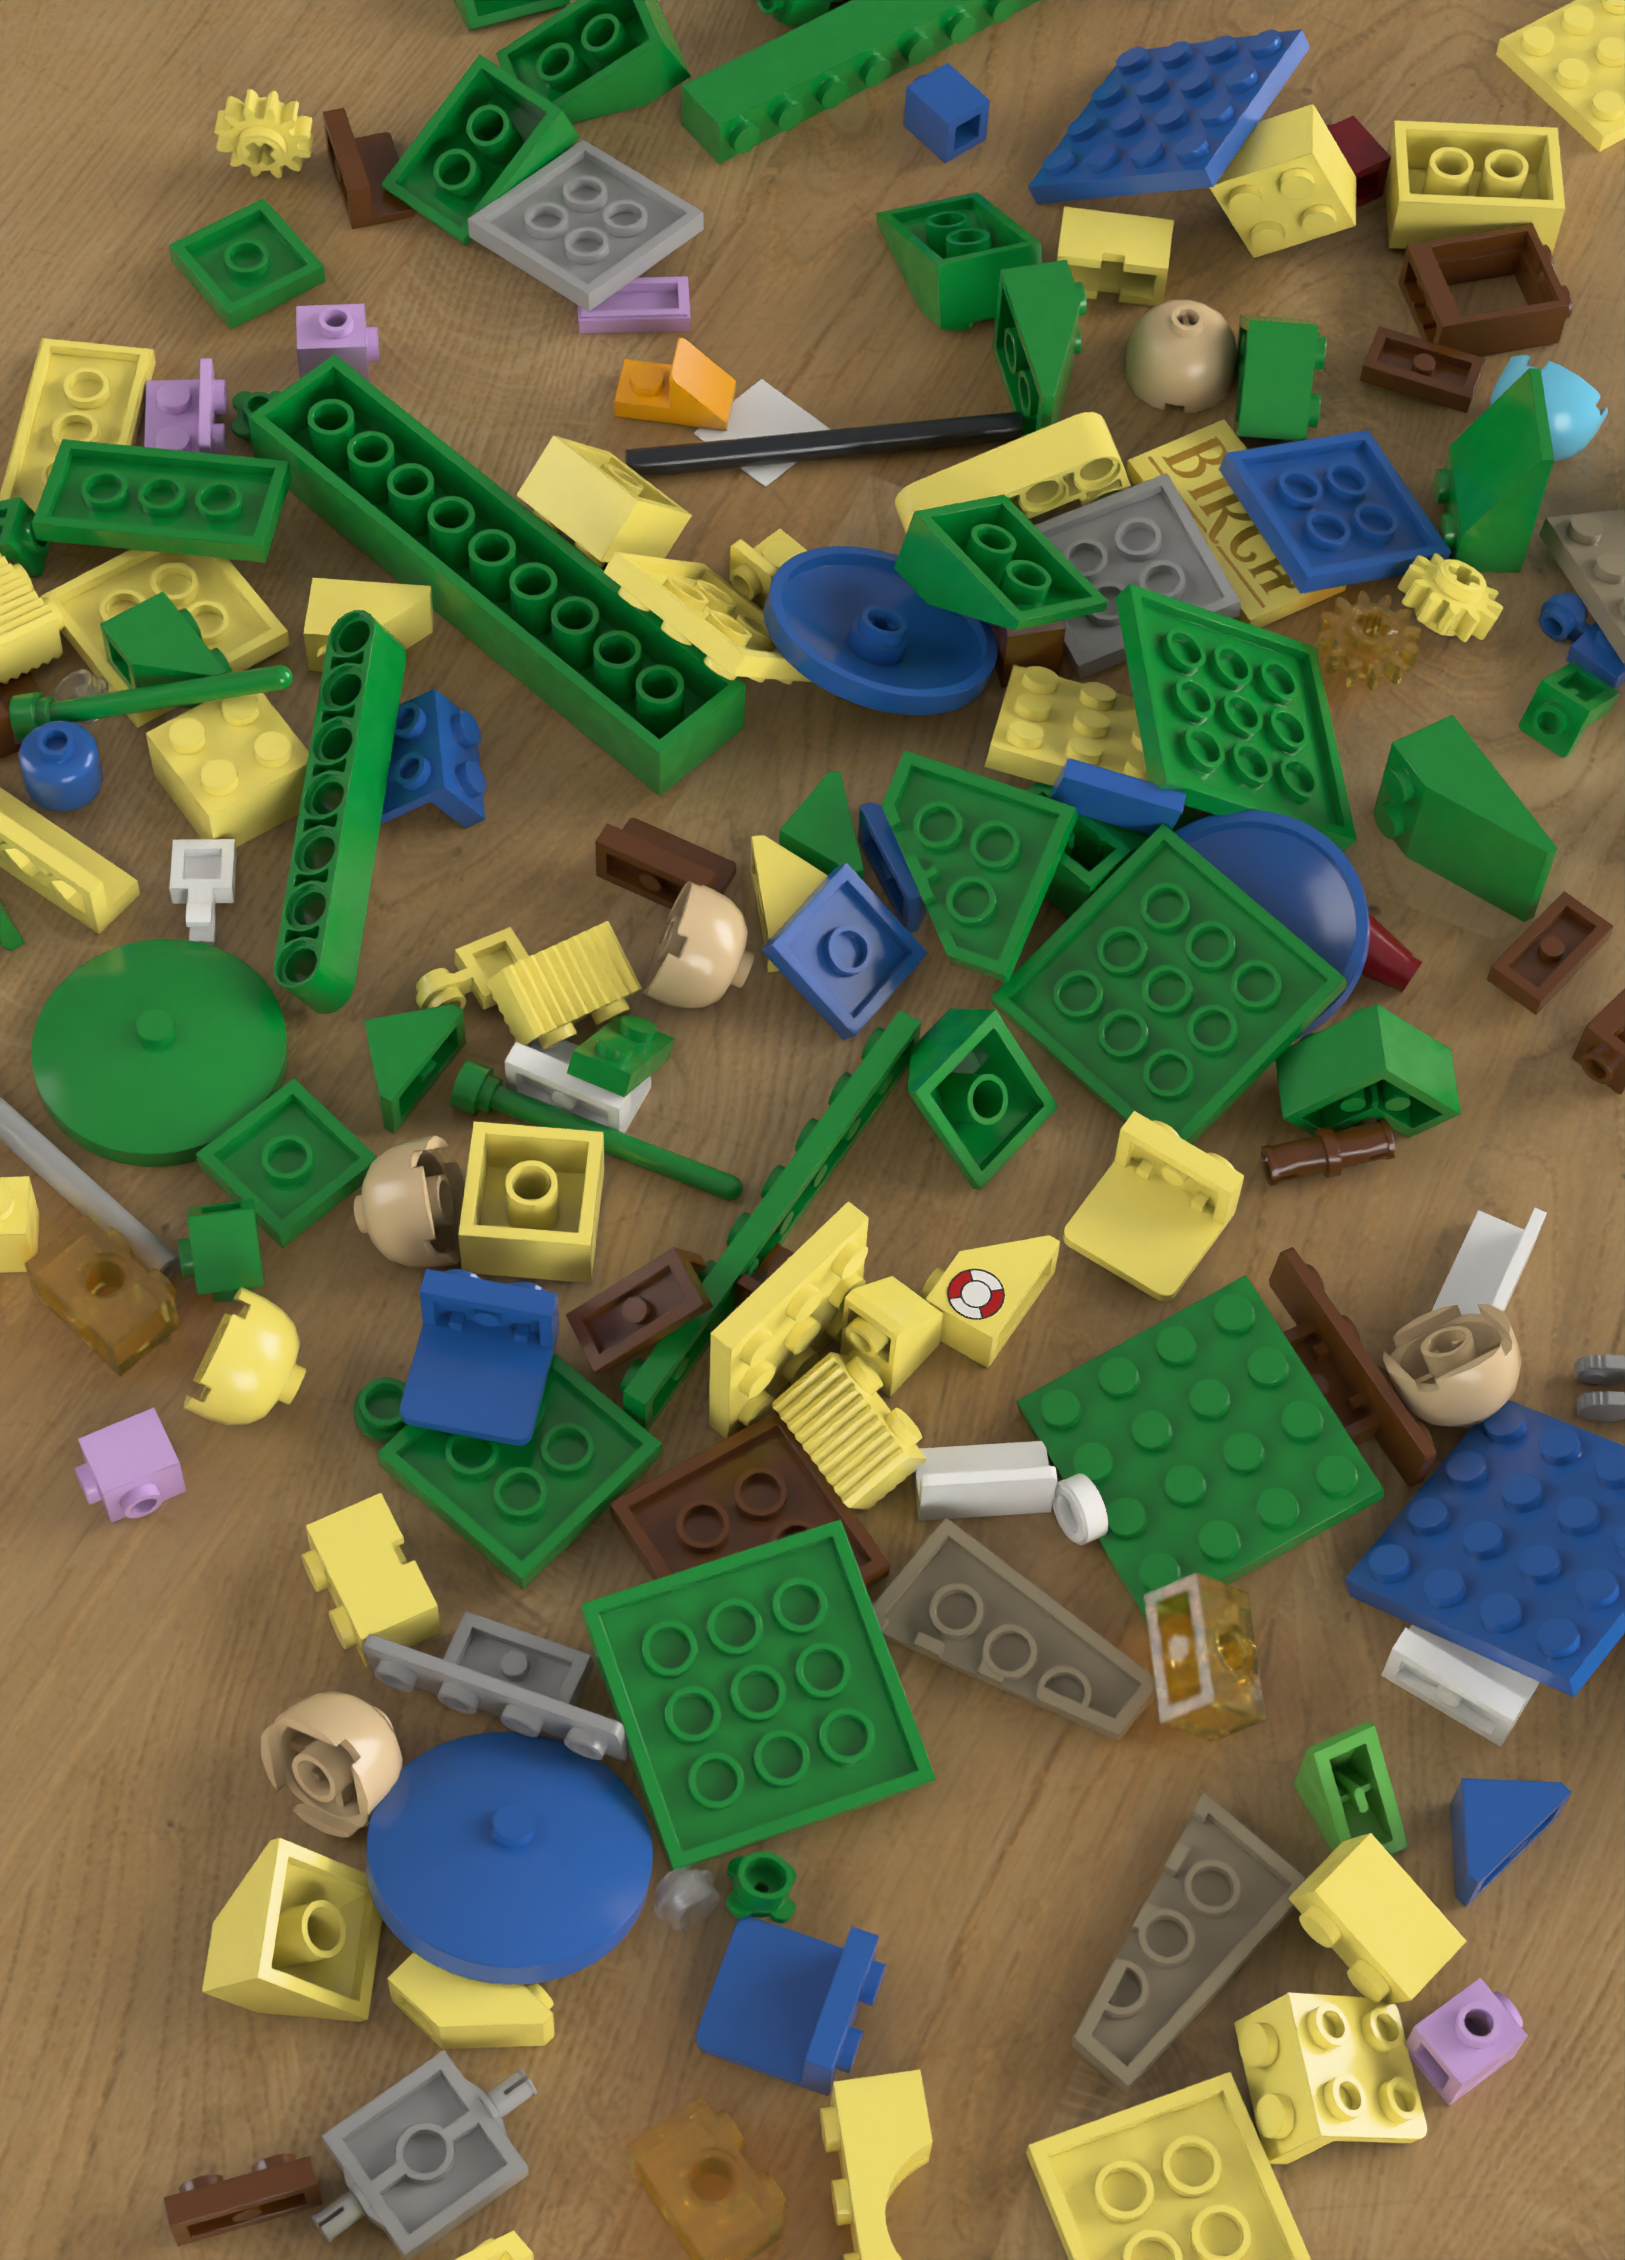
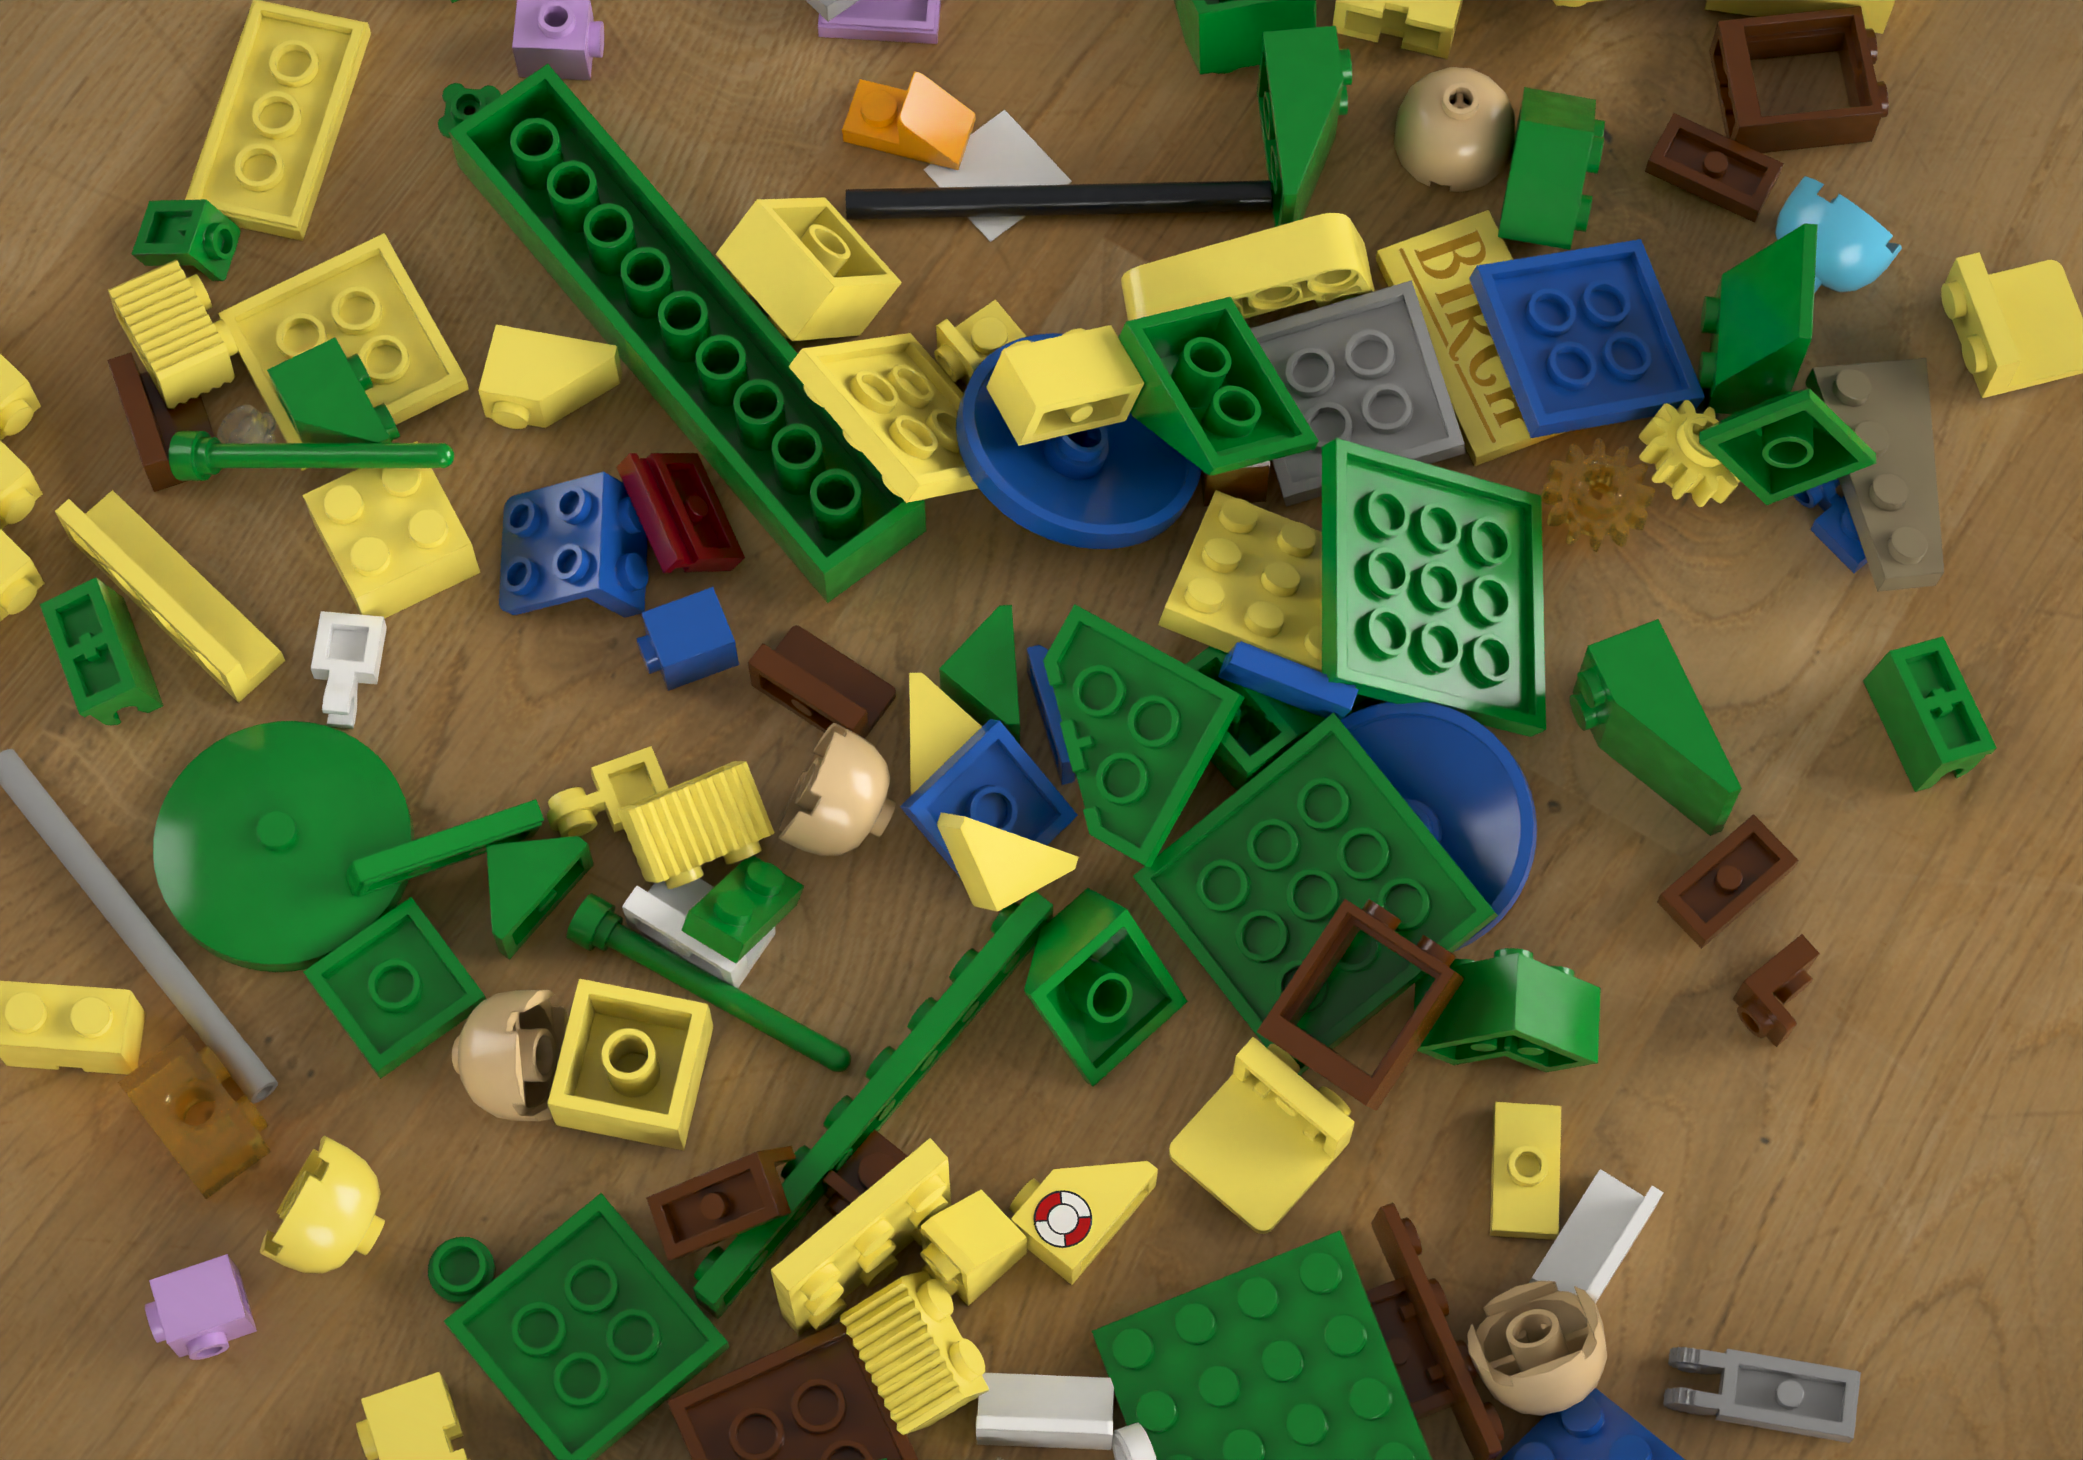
camera: 10 degrees right, 10 degrees up
(60, 766) = (216, 516): blue head -> none
(162, 500) = (352, 217): green plate -> none
(185, 413) = (387, 120): lavender bracket -> none
(222, 1249) = (317, 1082): green brick -> none
(316, 1030) = (443, 848): none -> green tile
(340, 813) = (491, 603): green beam -> none
(481, 1357) = (554, 1240): blue bracket -> none
(510, 725) = (680, 512): none -> dark red plate
(532, 834) = (687, 639): none -> blue brick
(861, 985) = (1000, 864): none -> light yellow slope
(863, 575) = (1064, 384): none -> light yellow brick
(1204, 1126) = (1282, 1021): none -> reddish brown window
(1328, 1152) = (1457, 1086): reddish brown pin -> none
(1388, 958) = (1555, 870): dark red cone -> none
(1407, 1221) = (1525, 1170): none -> light yellow plate
(1541, 569) = (1786, 445): none -> green slope
(1565, 707) = (1799, 592): green bracket -> none

